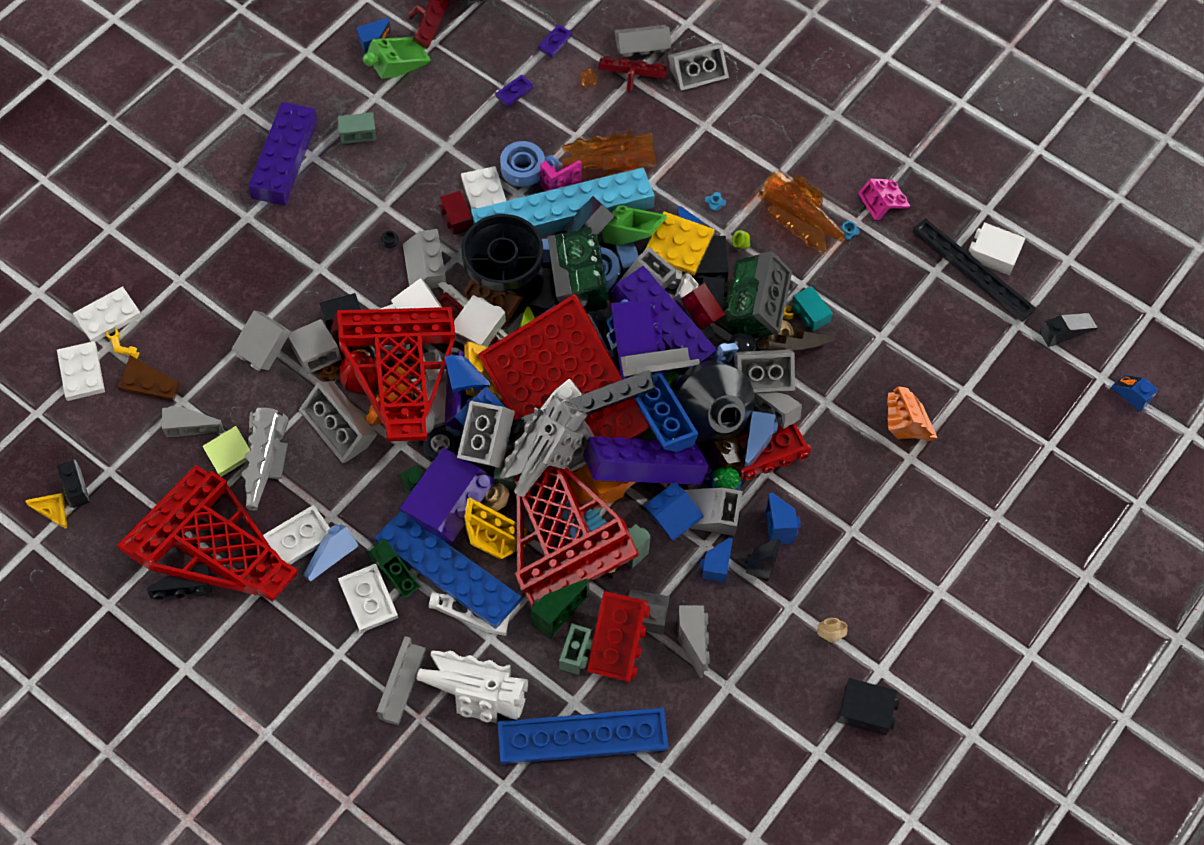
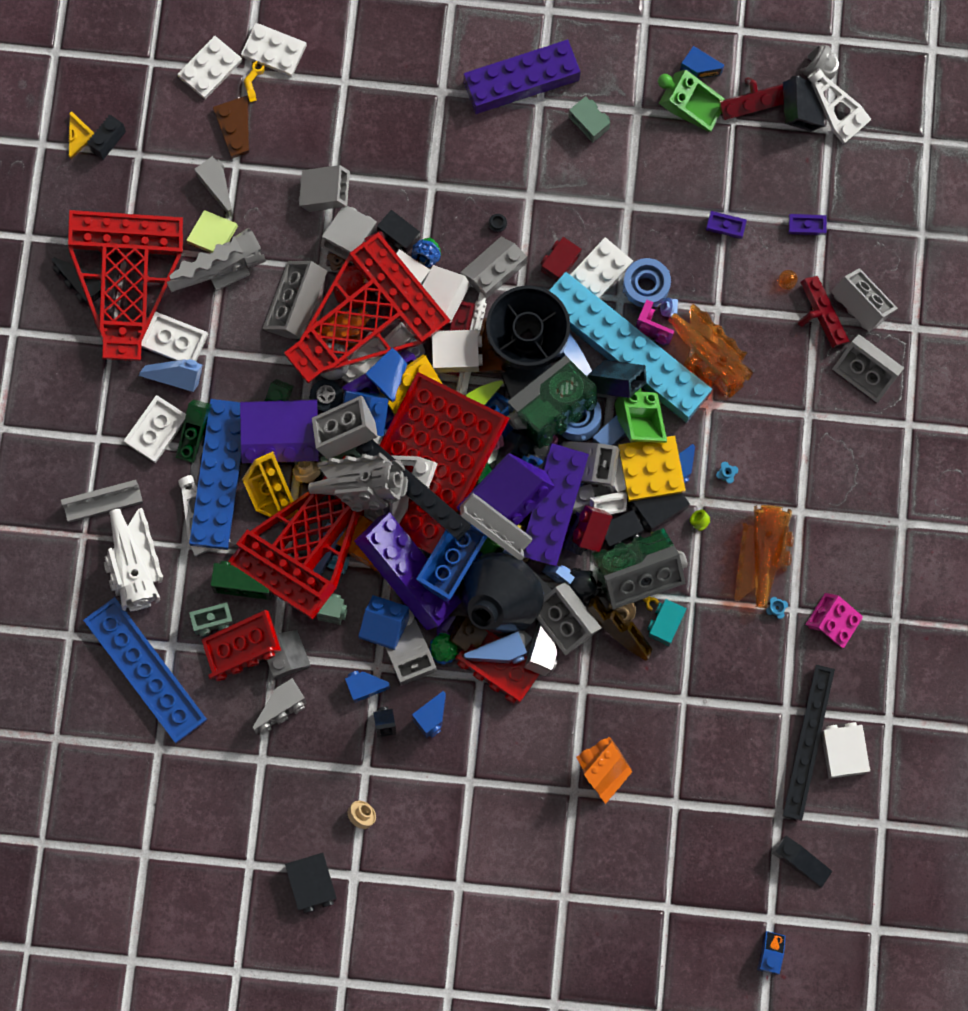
camera: 55 degrees right, 15 degrees up
(375, 298) = (427, 249): none -> blue piece

